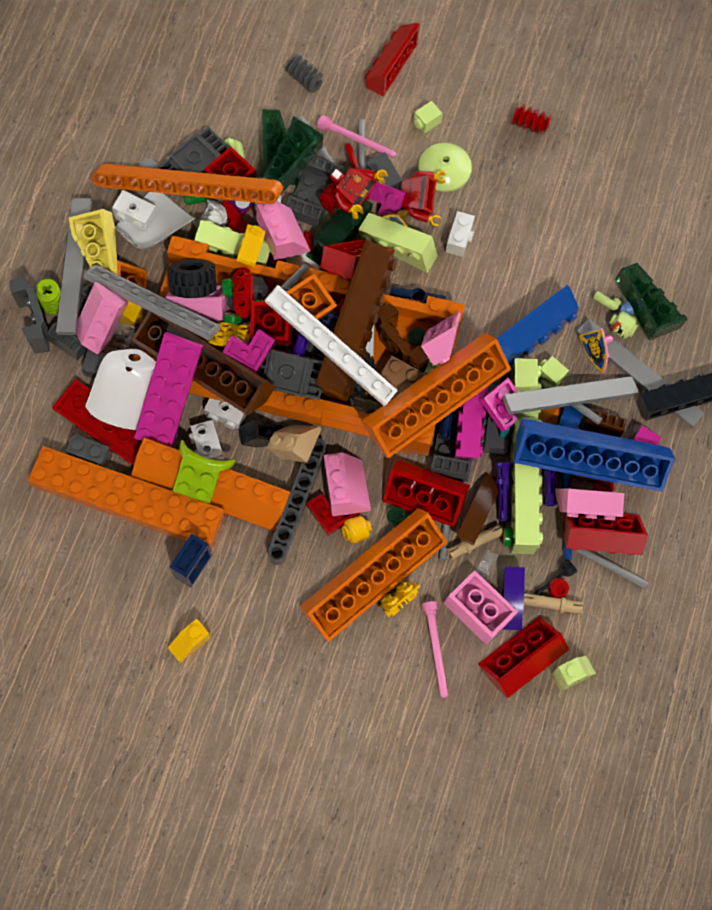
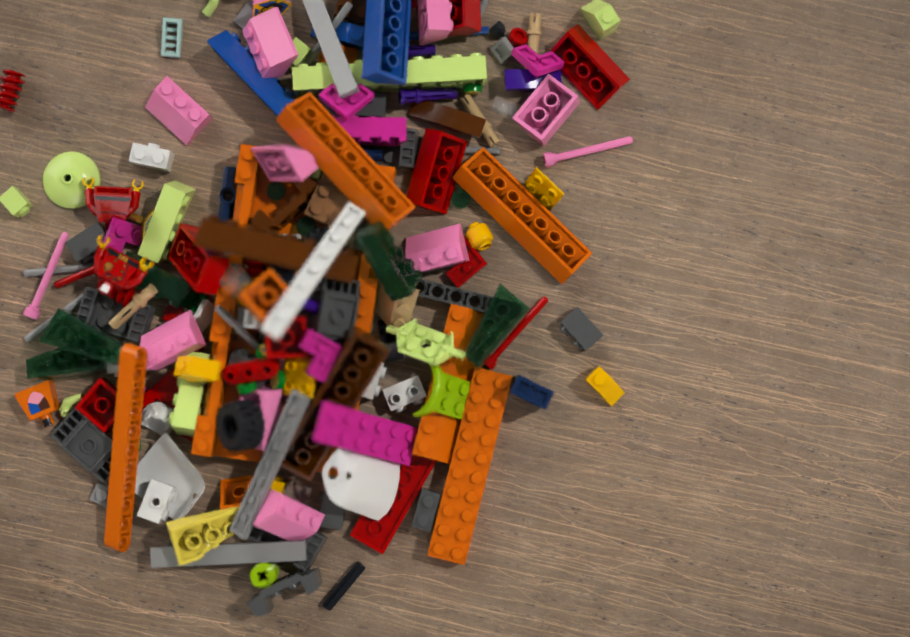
camera: 90 degrees left, 15 degrees up
(27, 370) = (343, 585): none -> black axle
(229, 529) = (491, 363): none -> red piece
(240, 122) = (39, 402): none -> orange torso
(250, 621) = (580, 329): none -> dark grey brick
(262, 453) = (413, 336): none -> yellowish green plate
(264, 533) = (497, 324): none -> clear green wedge
(322, 207) = (139, 301): none -> tan pin
(333, 283) = (235, 280): none -> clear piece
(335, 426) = (388, 261): none -> clear green wedge
(380, 359) = (305, 225): none -> clear green plate
(504, 262) = (177, 111): none -> bright pink slope
(528, 600) = (535, 63): none -> dark pink plate
(546, 571) = (502, 50): none -> light grey plate
(562, 344) = (270, 43): none -> bright pink slope
(583, 257) = (165, 29): none -> light aqua slope

